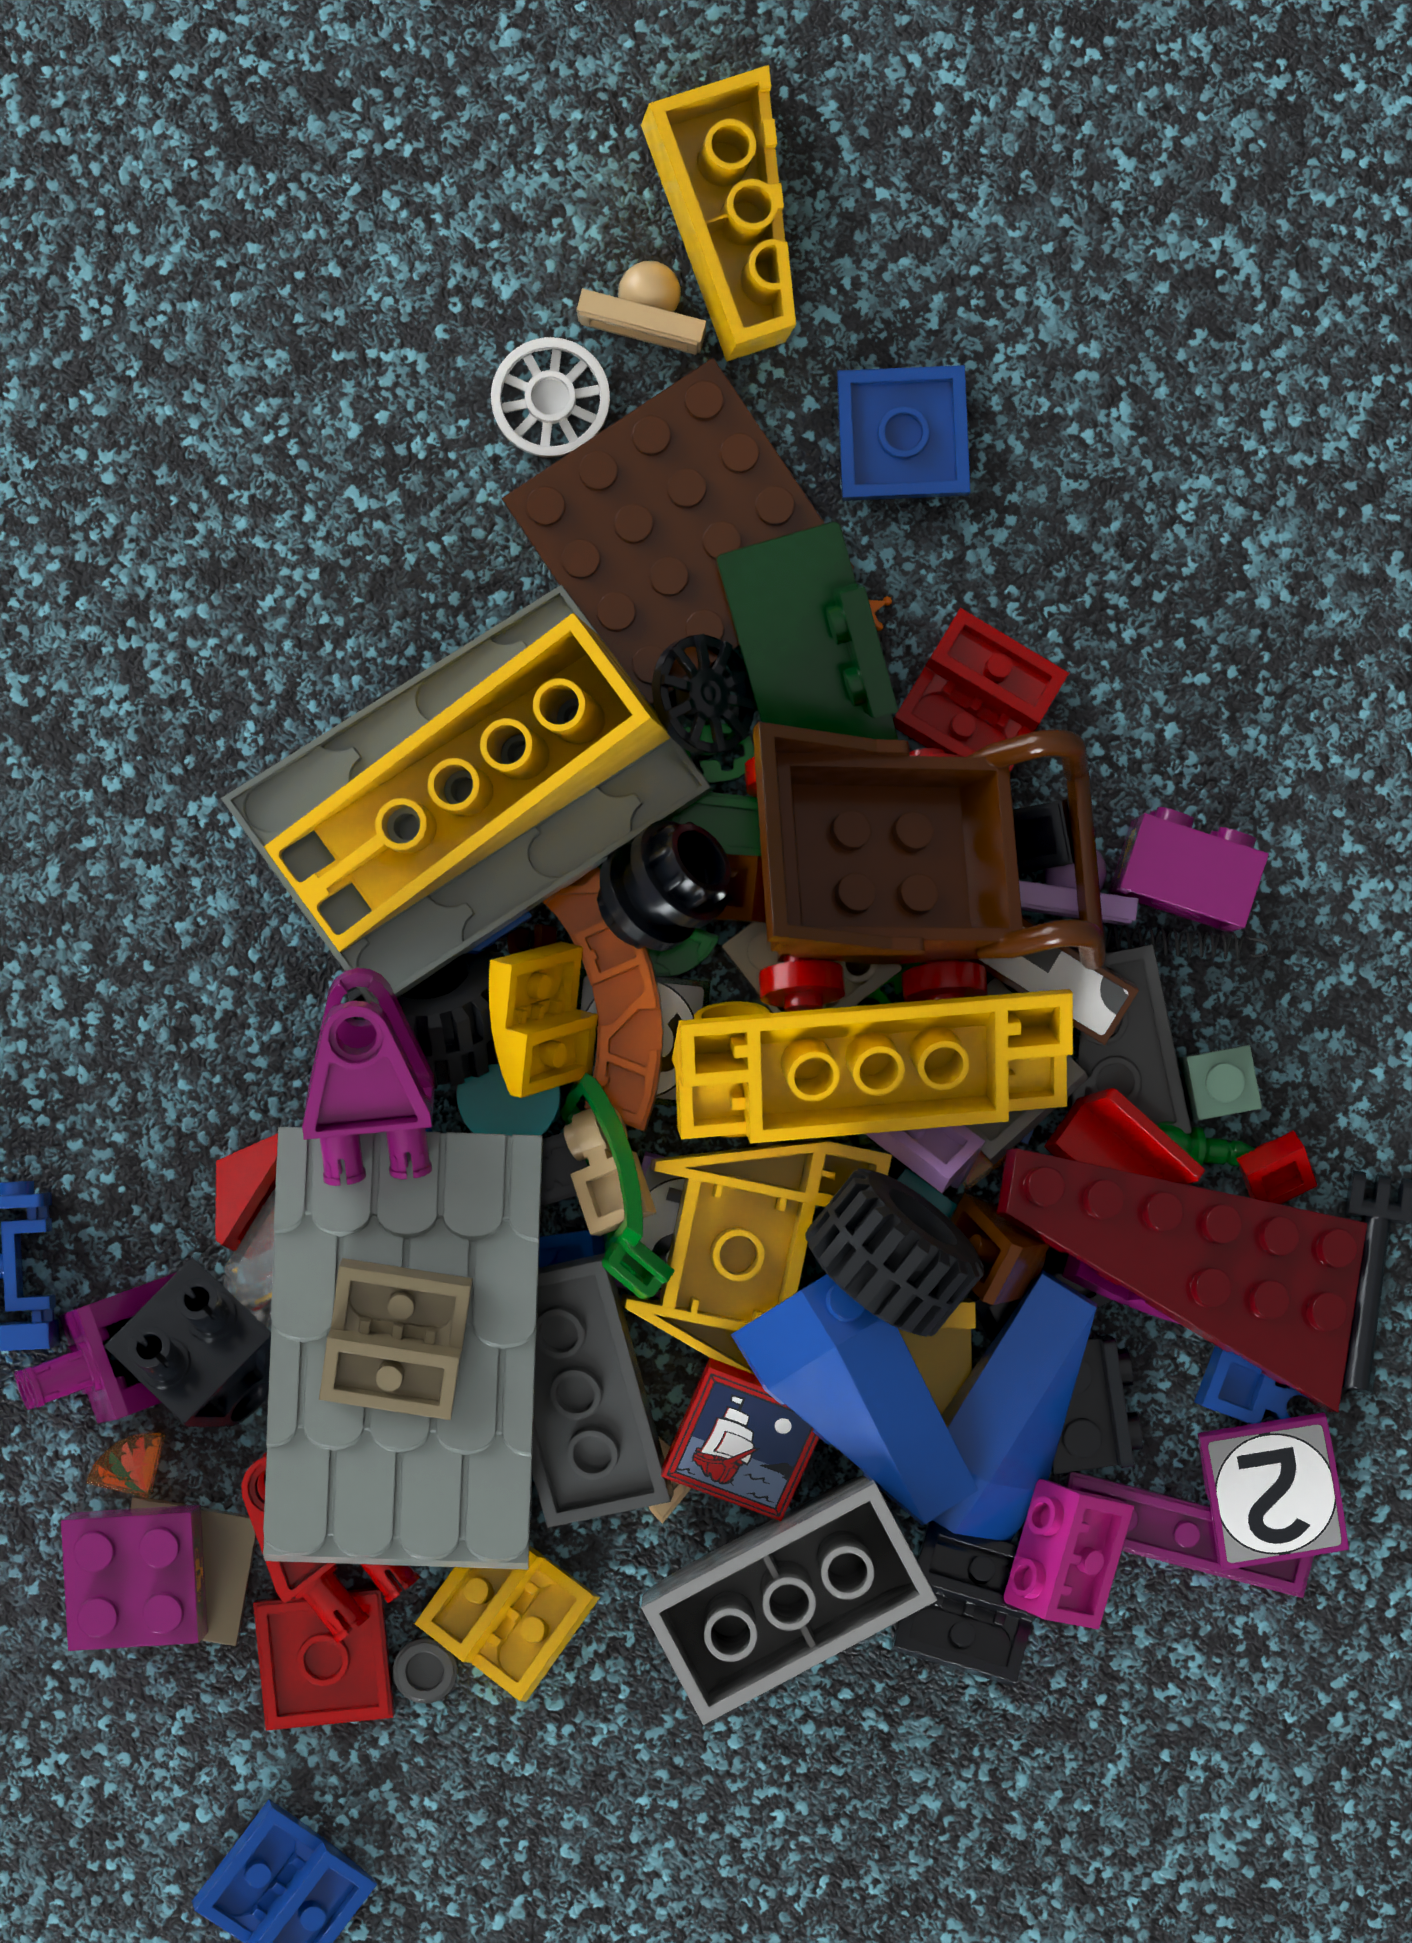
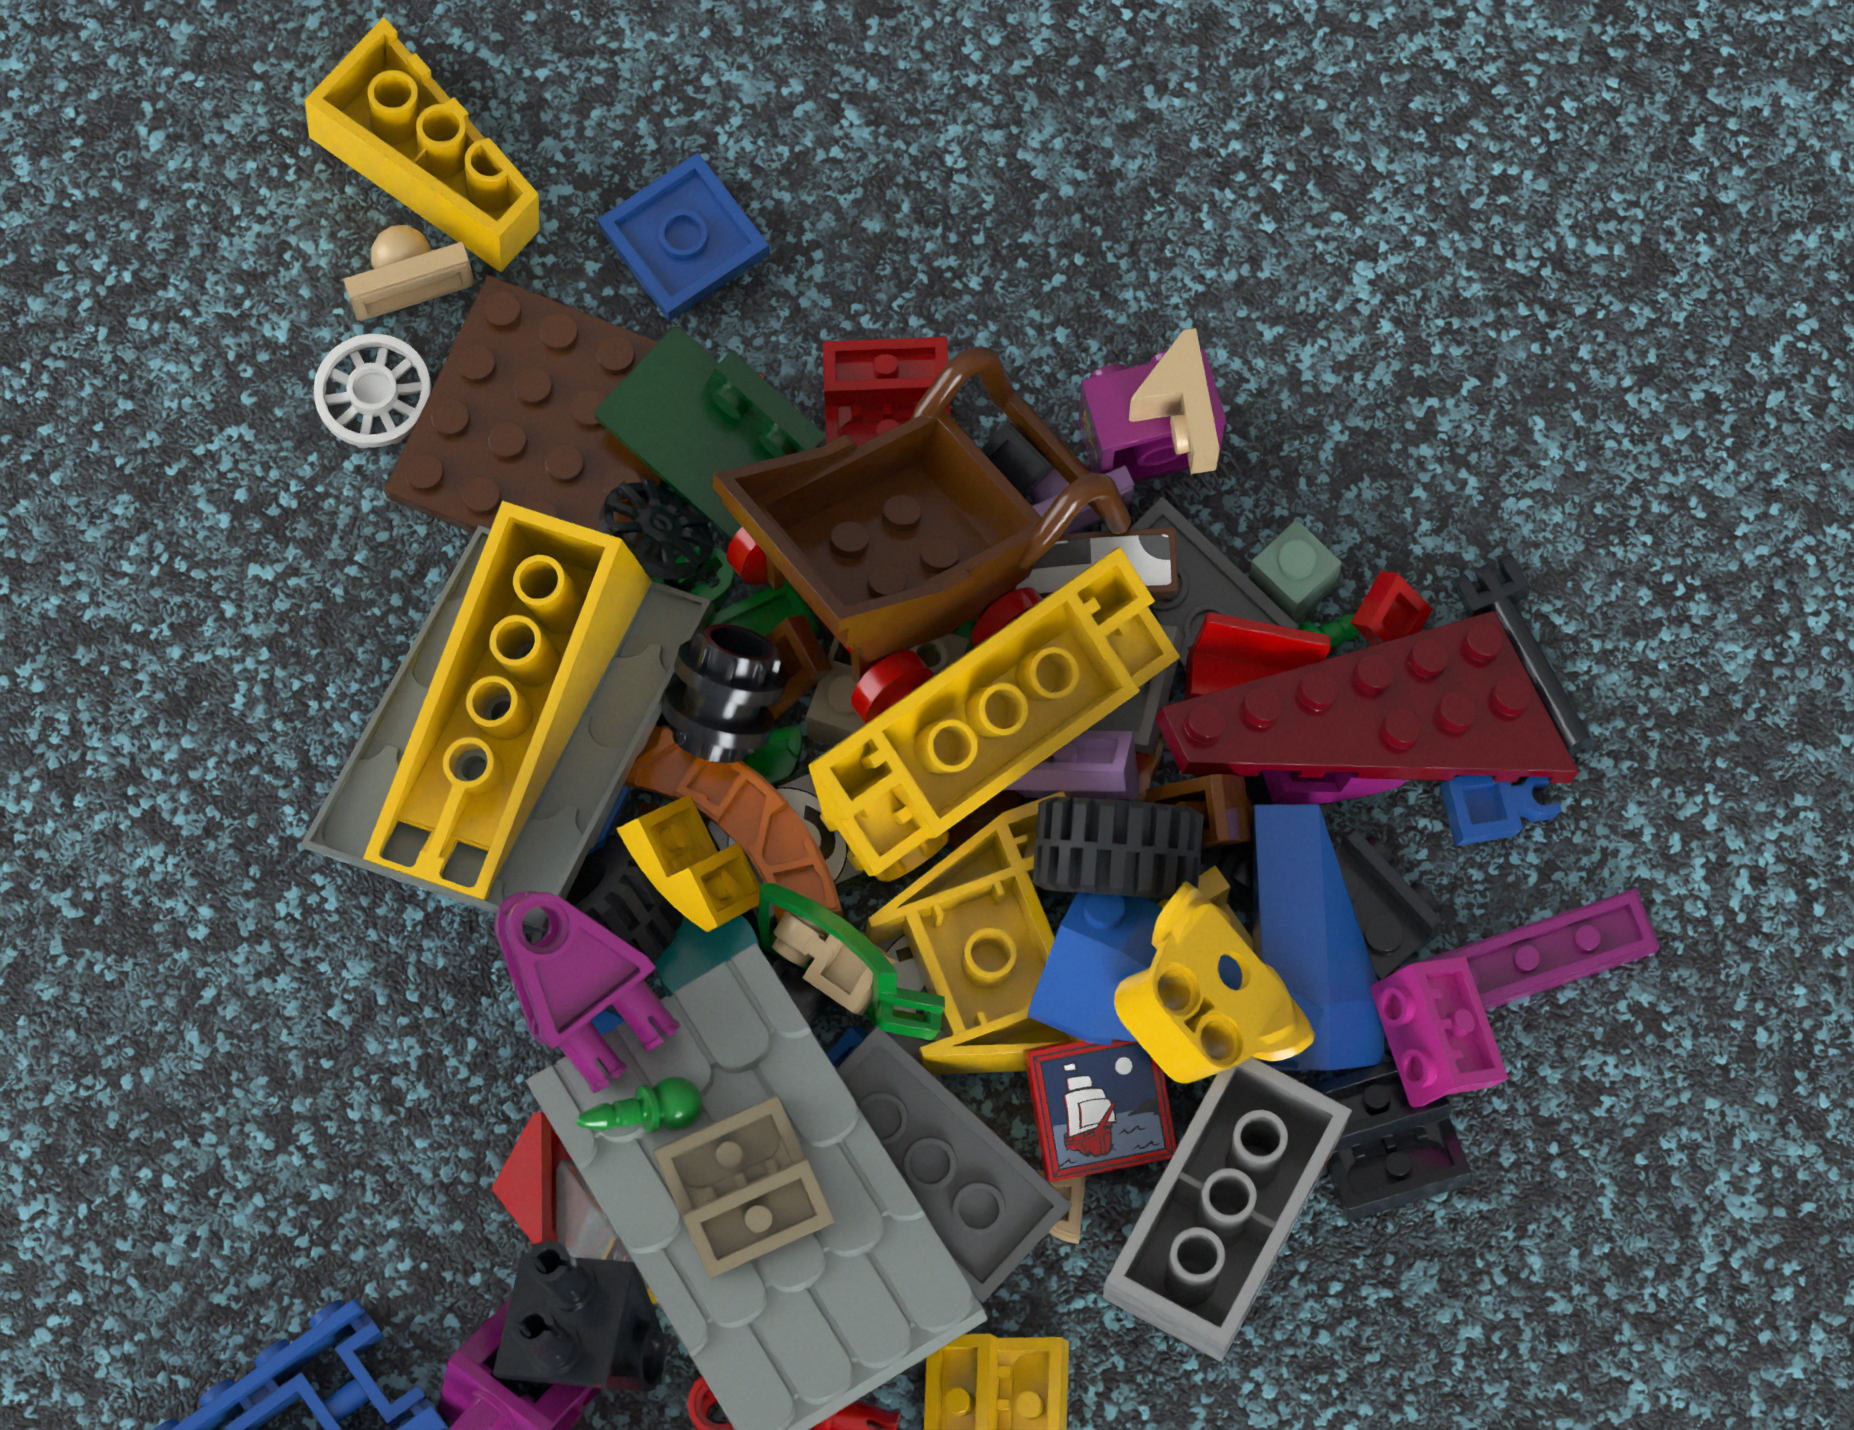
camera: 30 degrees left, 15 degrees down
(382, 1229) = (671, 1104): none -> green bar
(855, 1440) = (1187, 1012): none -> yellow piece
(1224, 883) = (1180, 389): none -> tan slope
(1273, 1491) = (1571, 870): slope -> none

